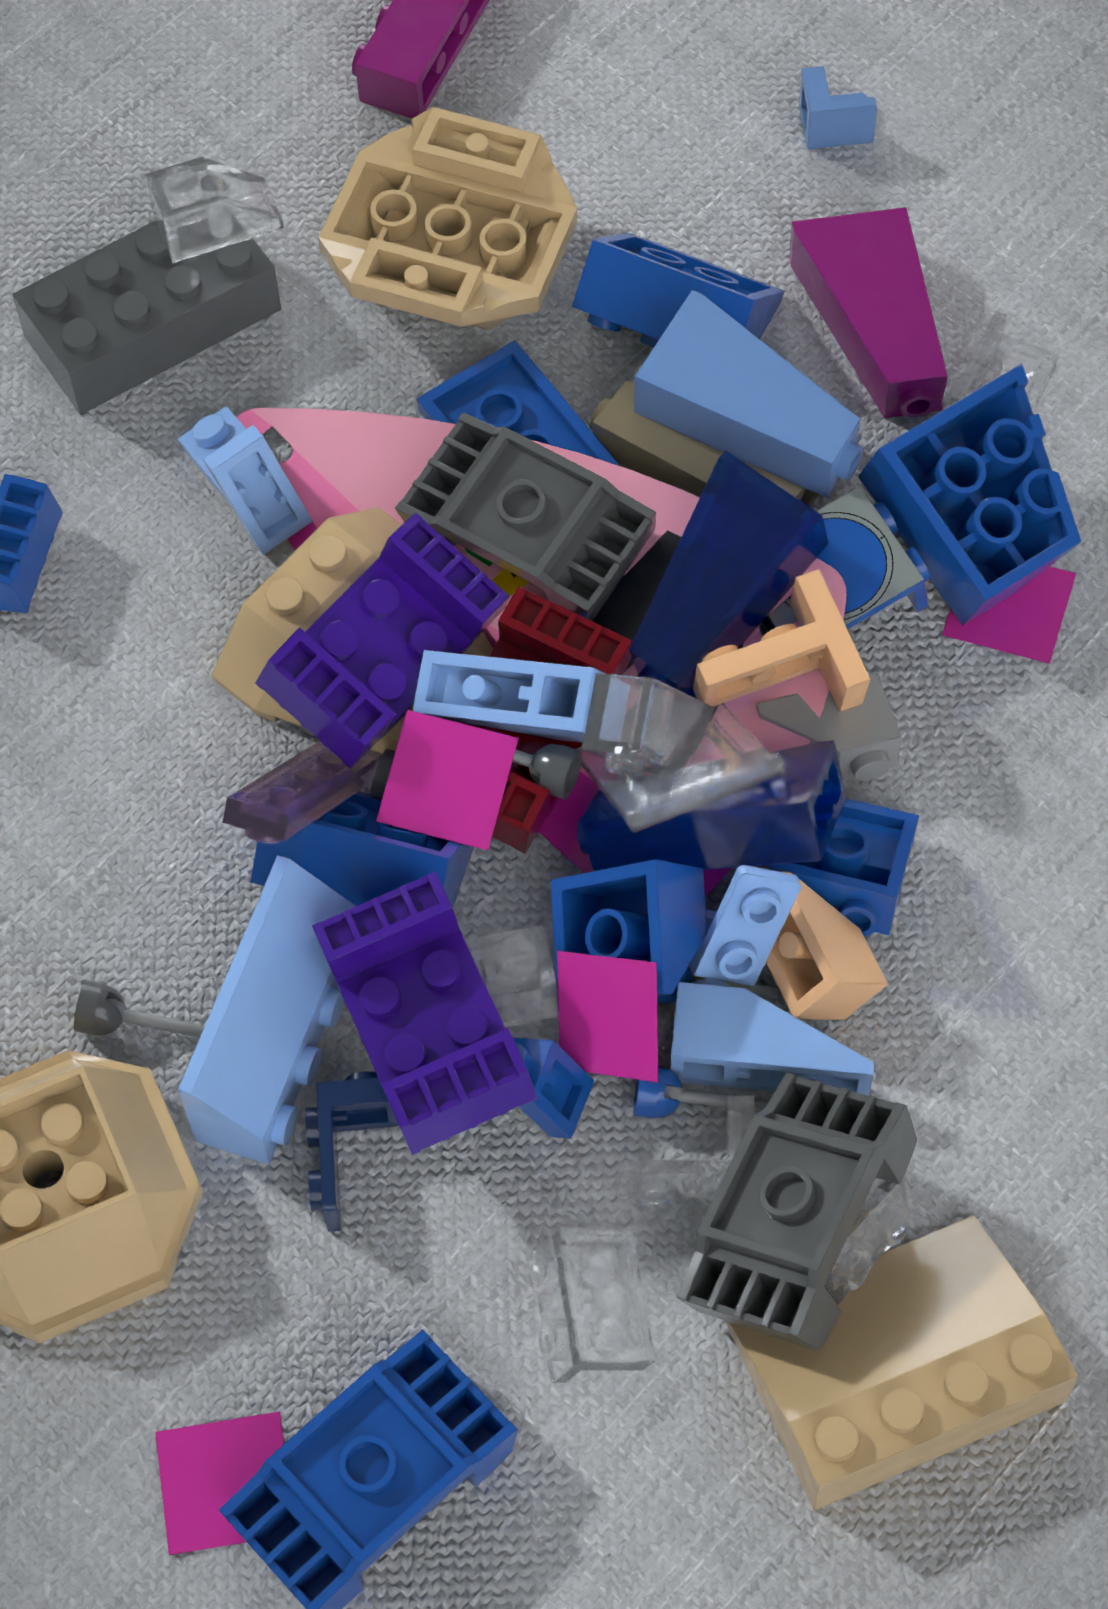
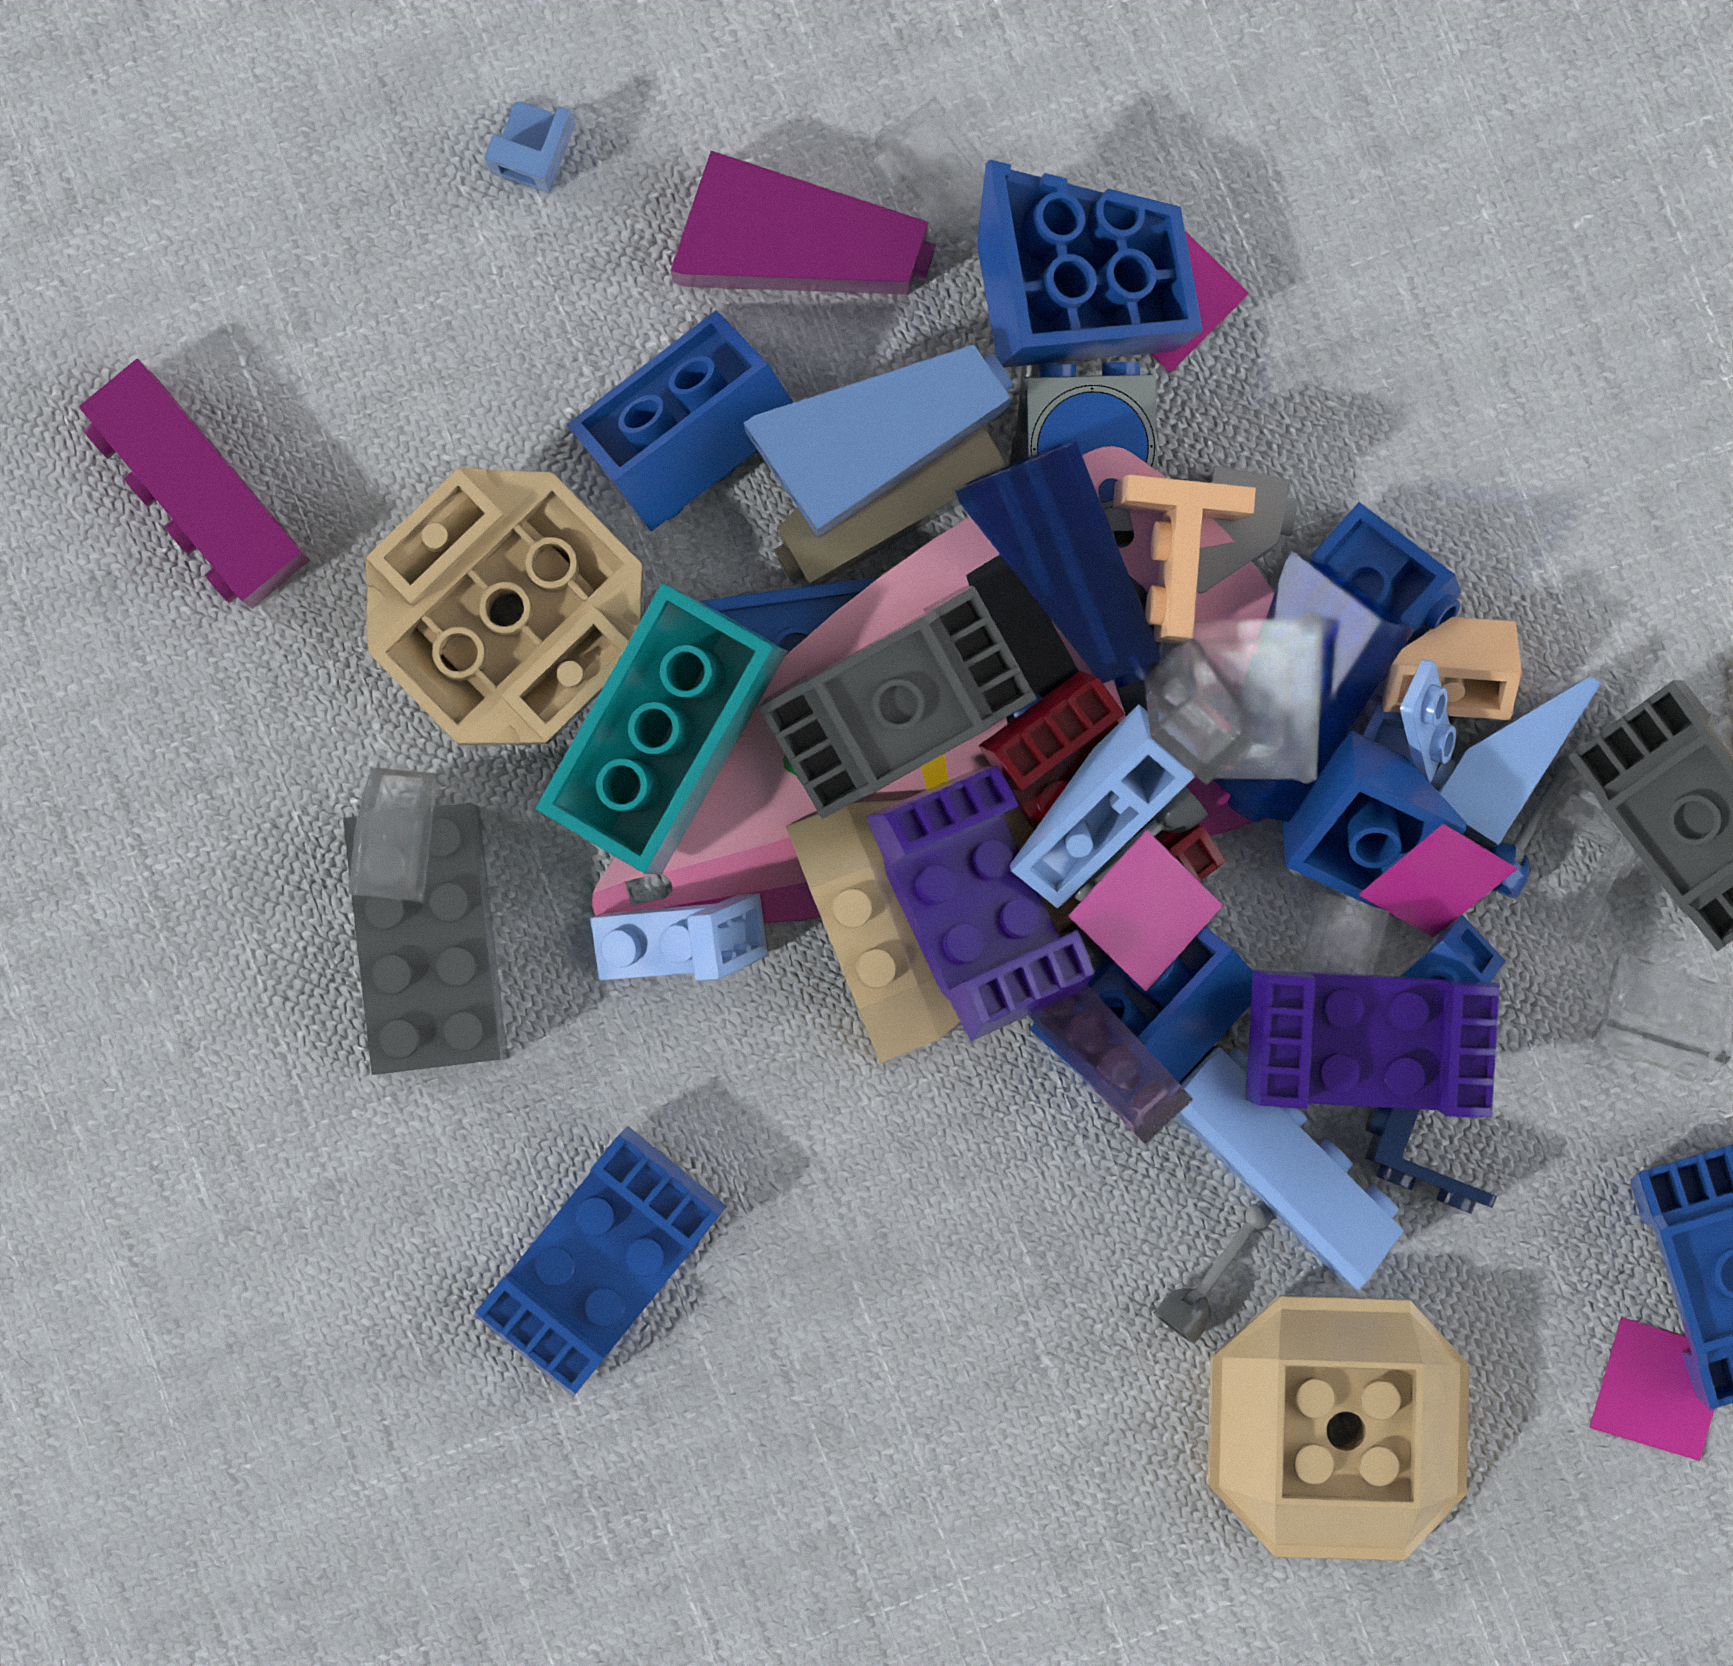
camera: 65 degrees left, 25 degrees up
(404, 362) = (661, 730): none -> teal slope

